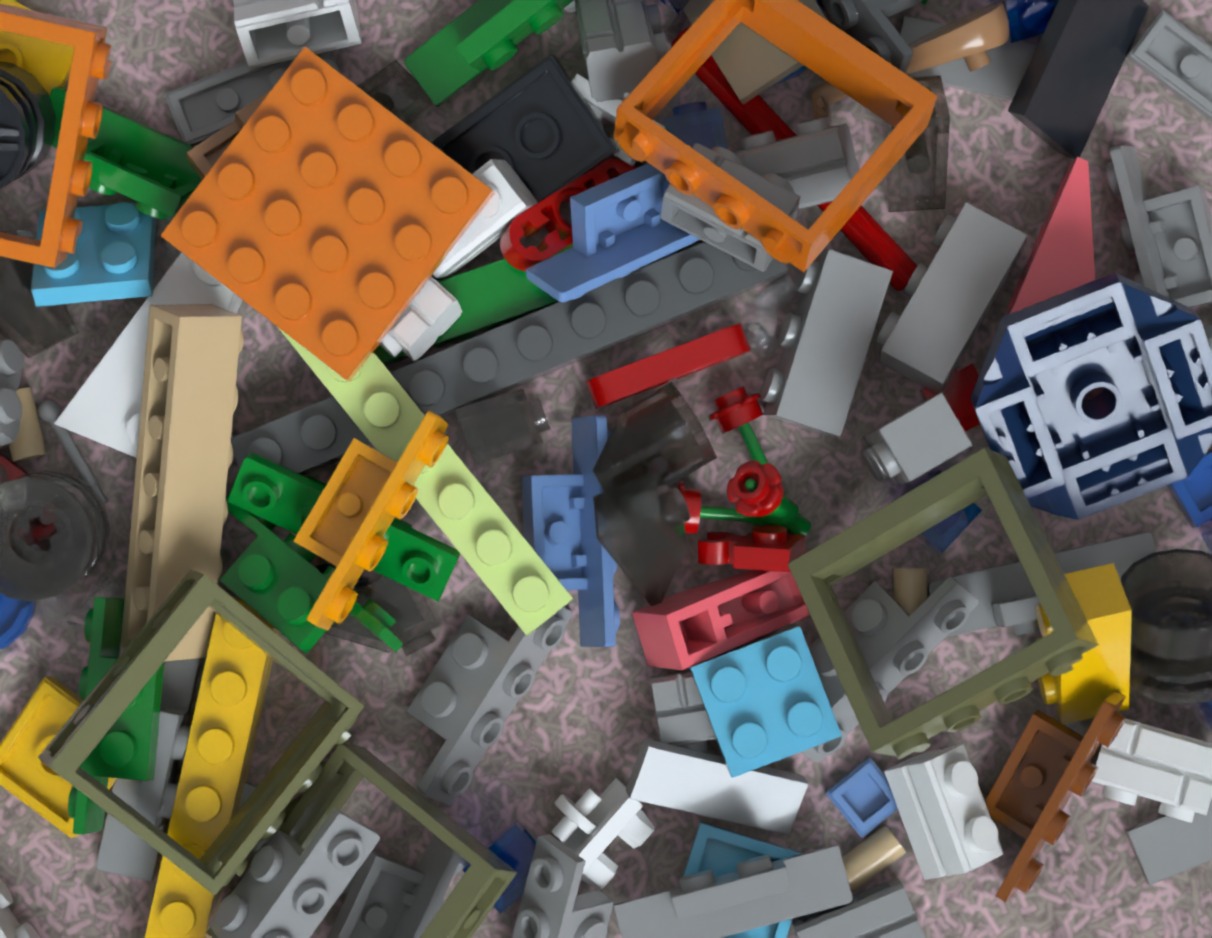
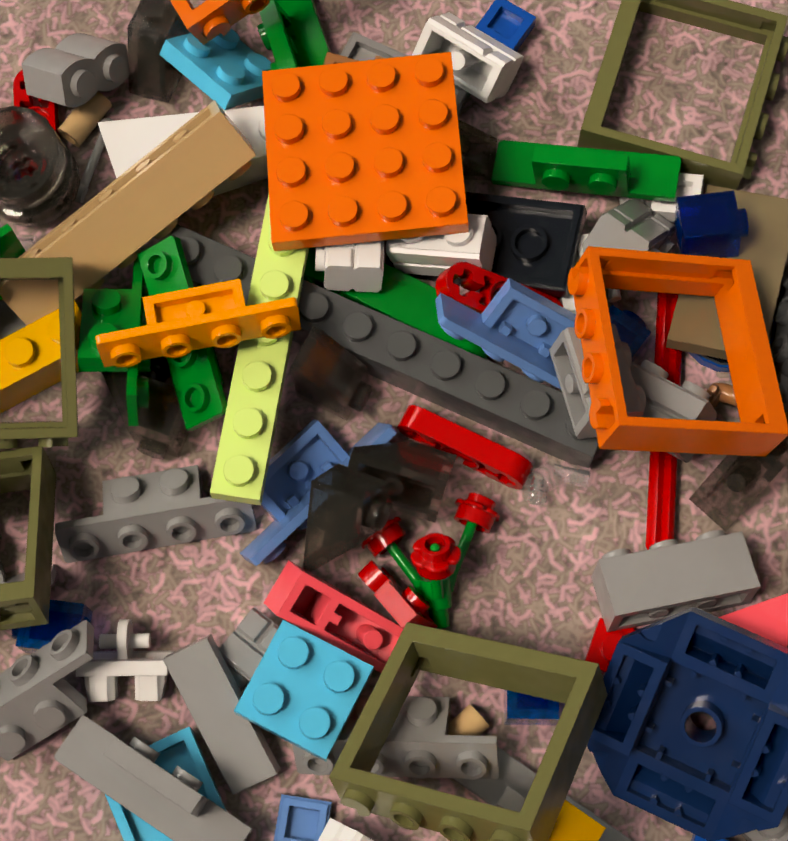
camera: 50 degrees right, 15 degrees down
(825, 342) = (570, 526): light grey brick -> none
(914, 442) = (561, 622): light grey brick -> none

